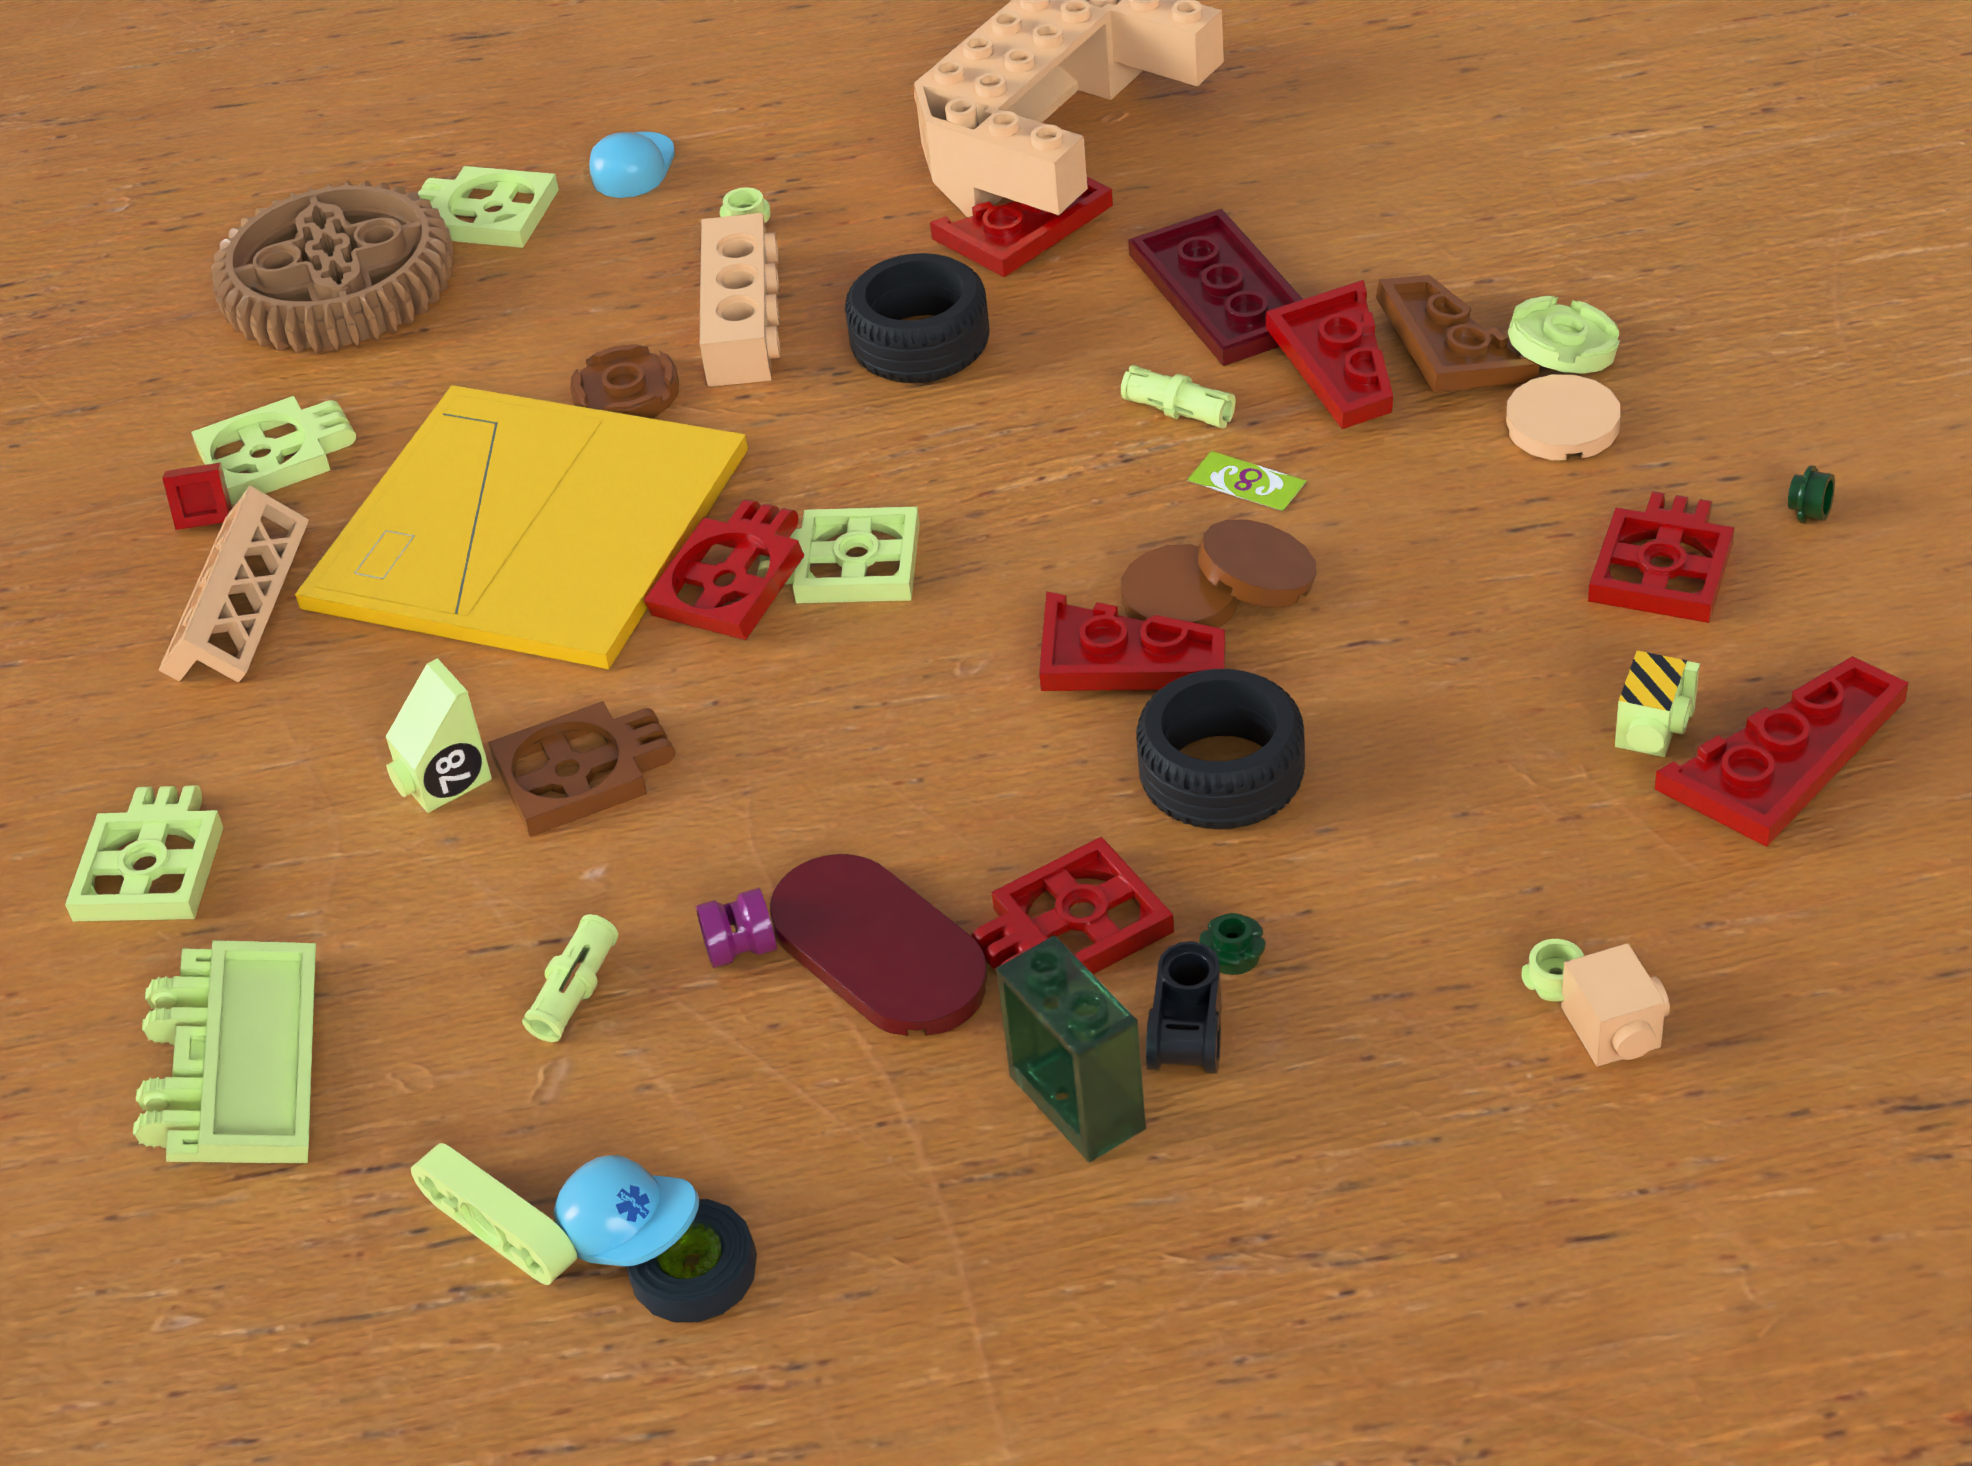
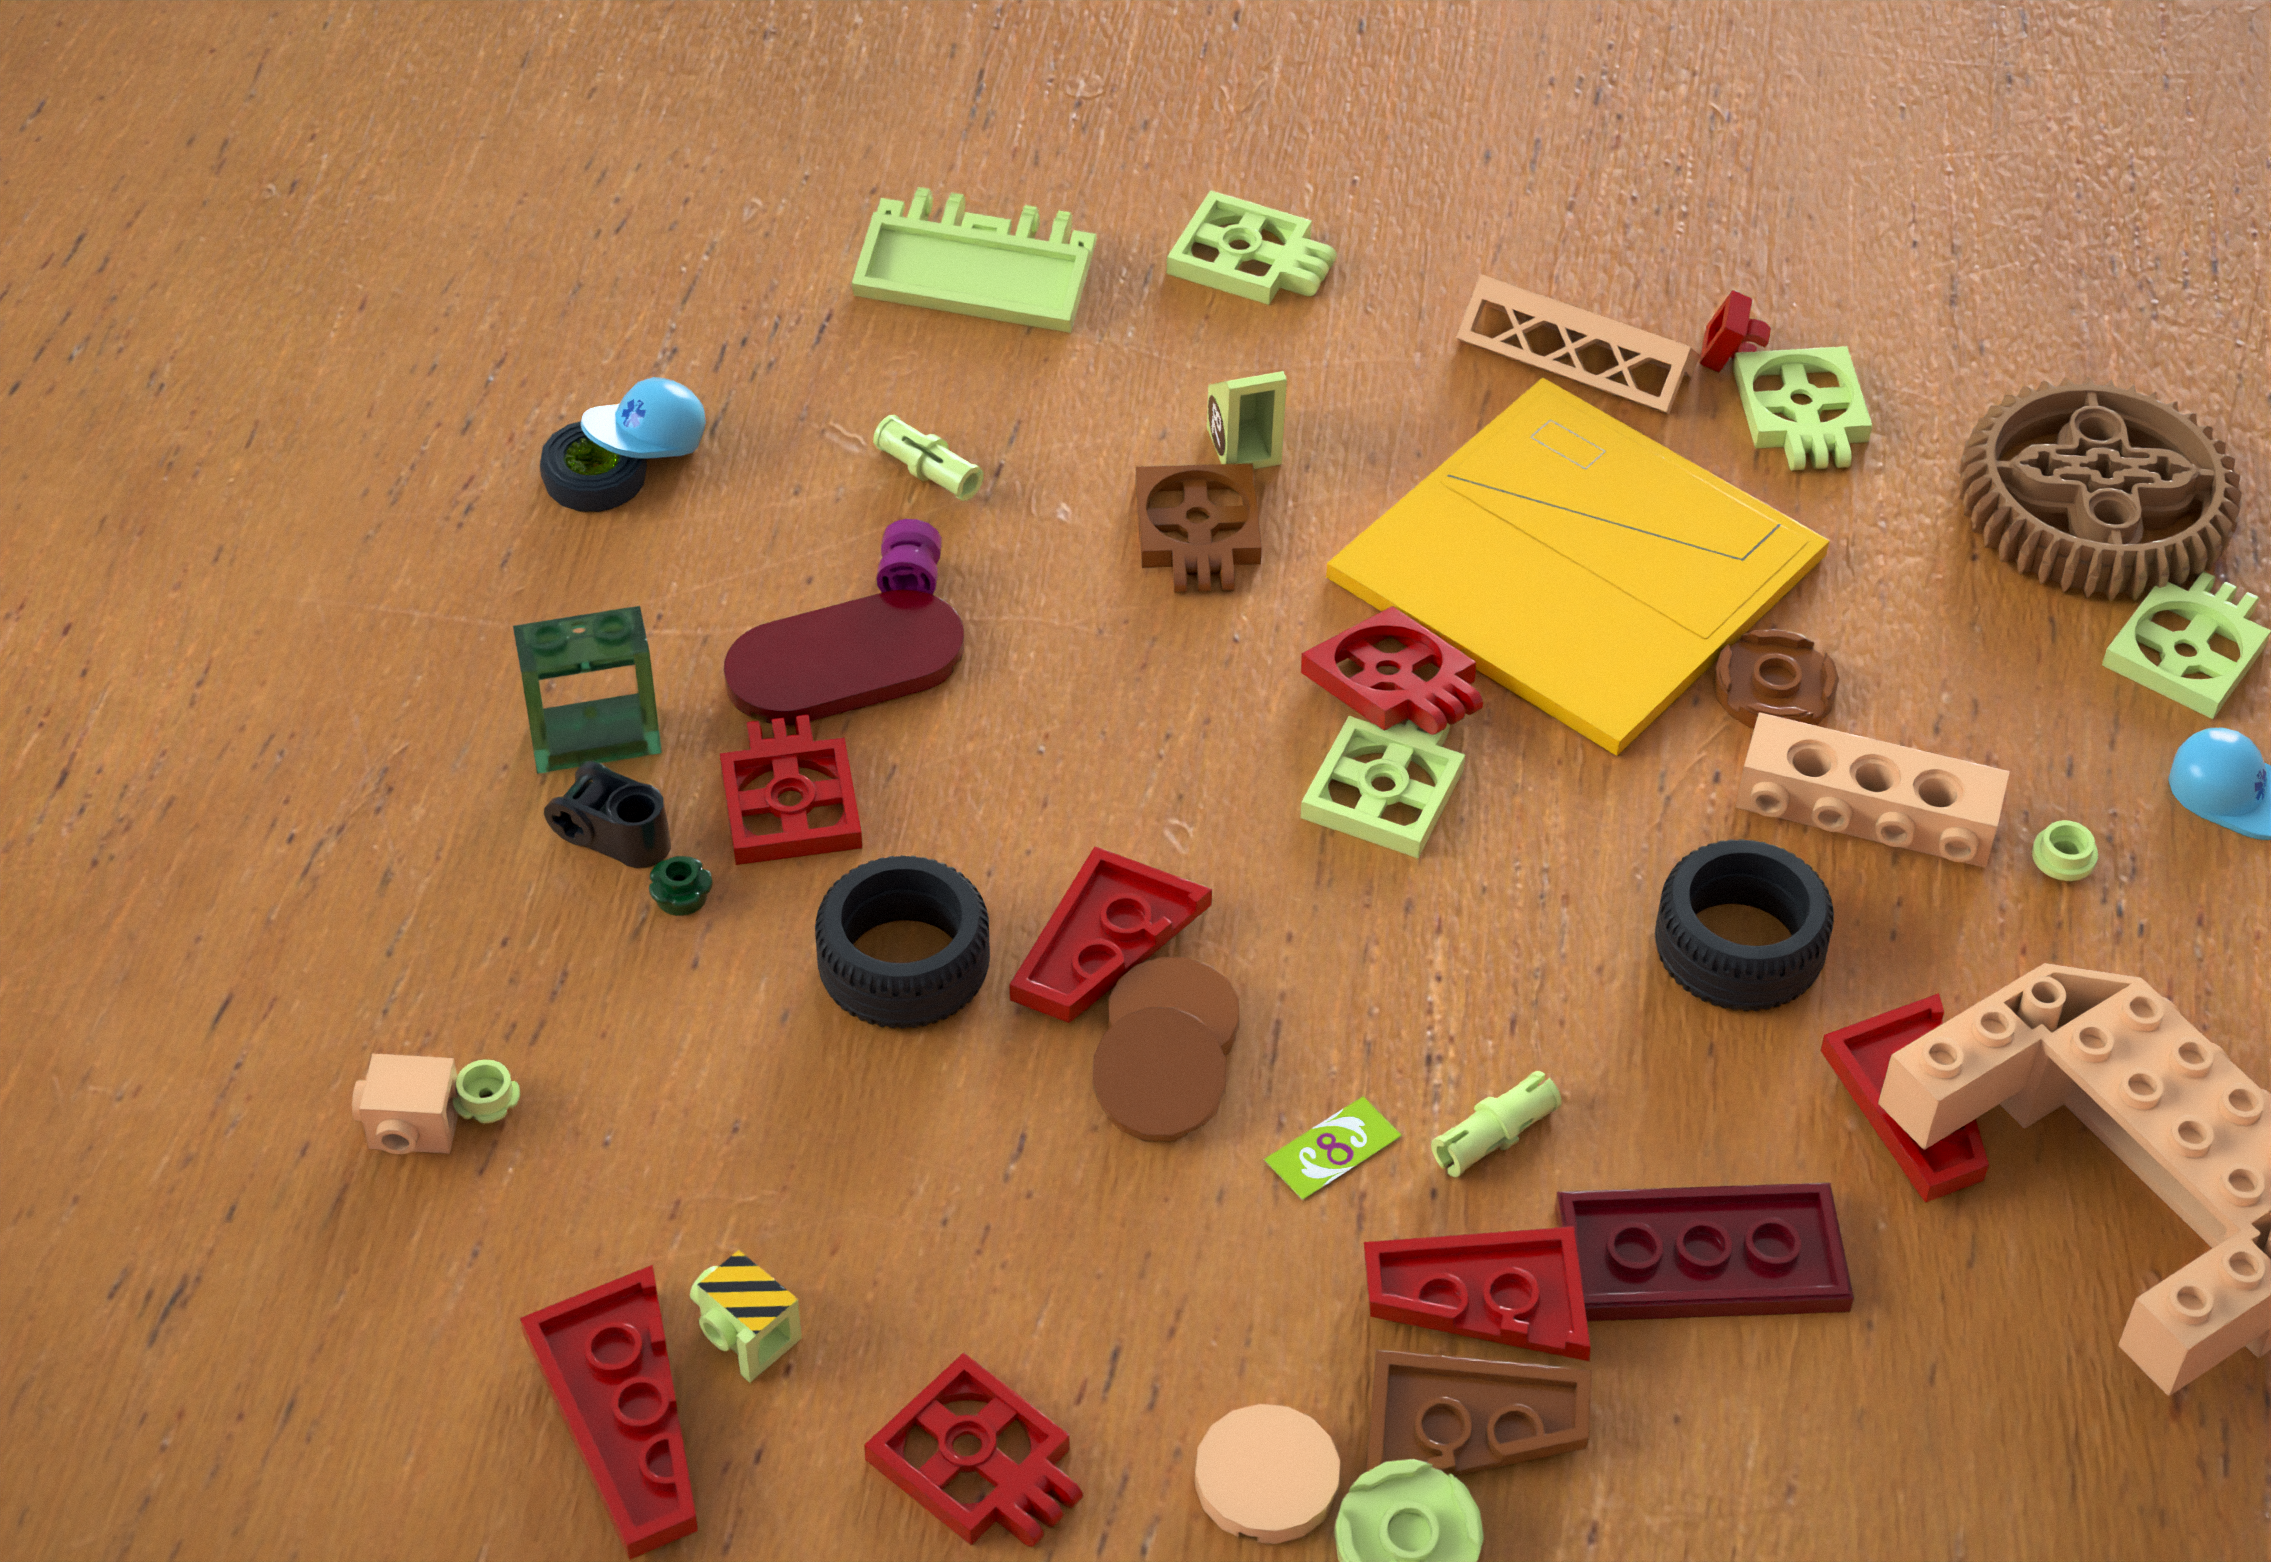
camera: 105 degrees right, 5 degrees up
(494, 1213) = (759, 351): yellowish green beam -> none

